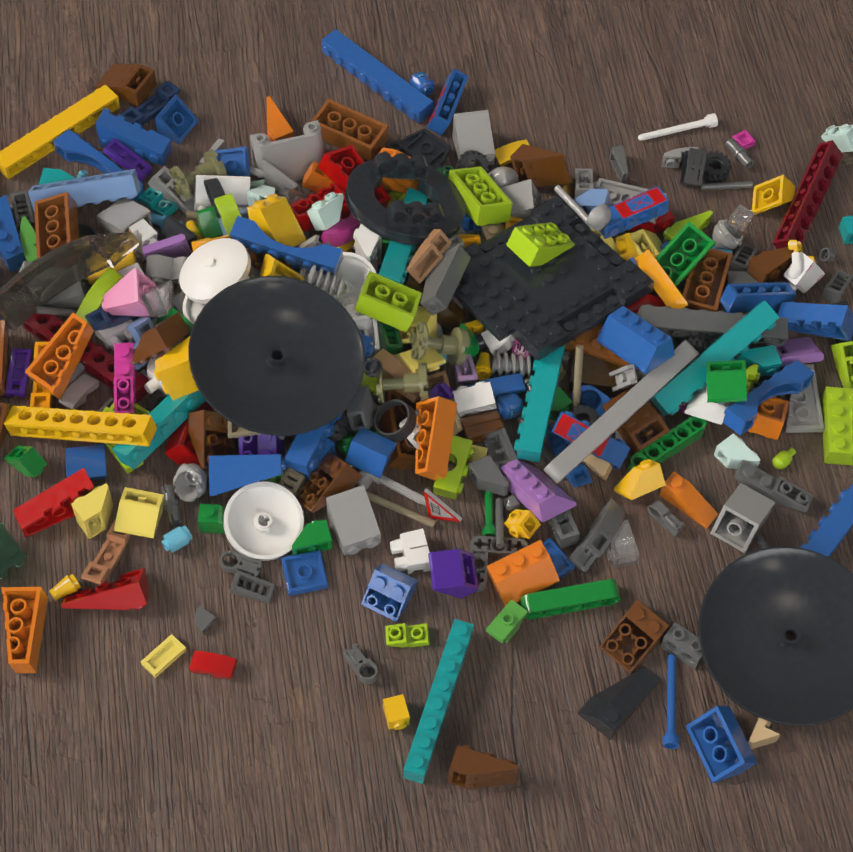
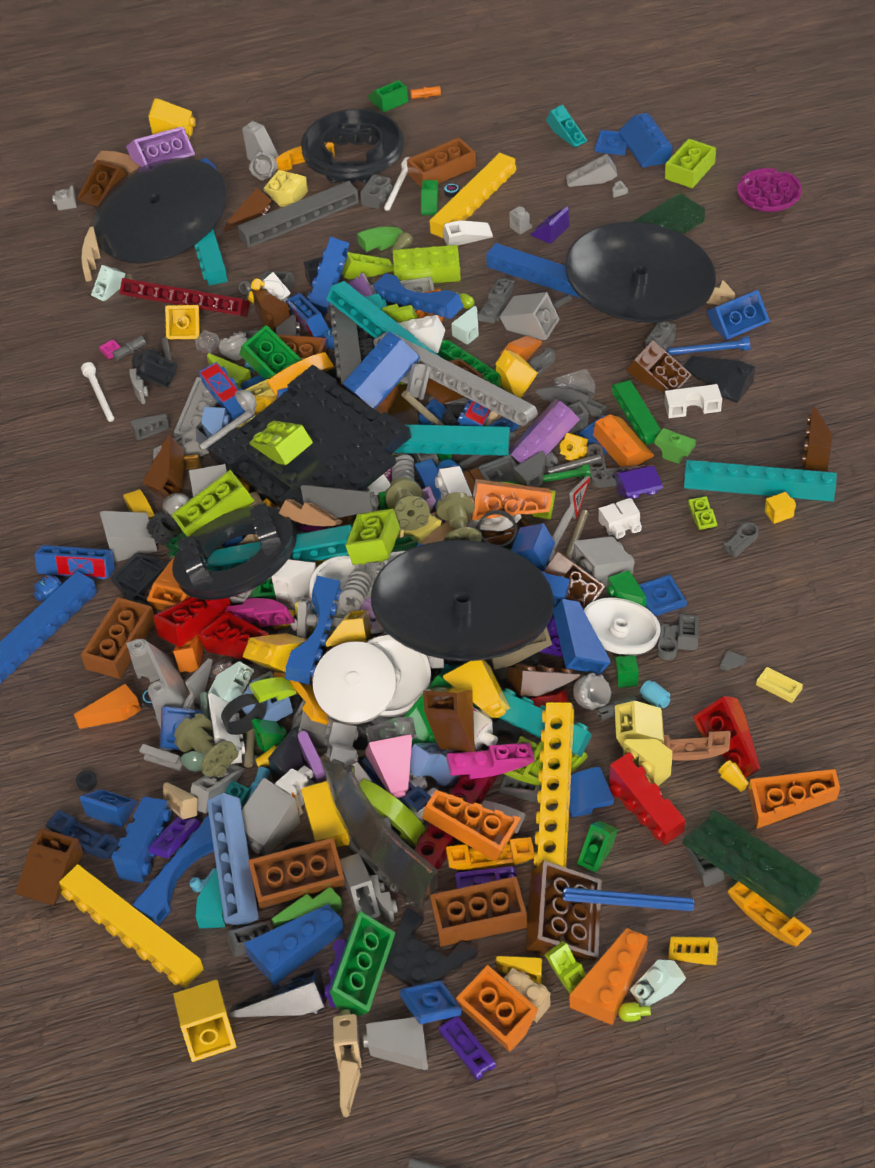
camera: 90 degrees left, 10 degrees down
(156, 164) = (180, 801): none -> tan slope
(209, 110) = (86, 780): none -> black tile
(212, 663) = (777, 644): red slope -> none
(326, 212) = (253, 614): light aqua slope -> none
(372, 367) = (456, 532): black plate -> none
(389, 592) = (665, 528): blue slope -> none
(580, 643) = (706, 397): none -> white arch
(726, 381) = (418, 308): green slope -> none

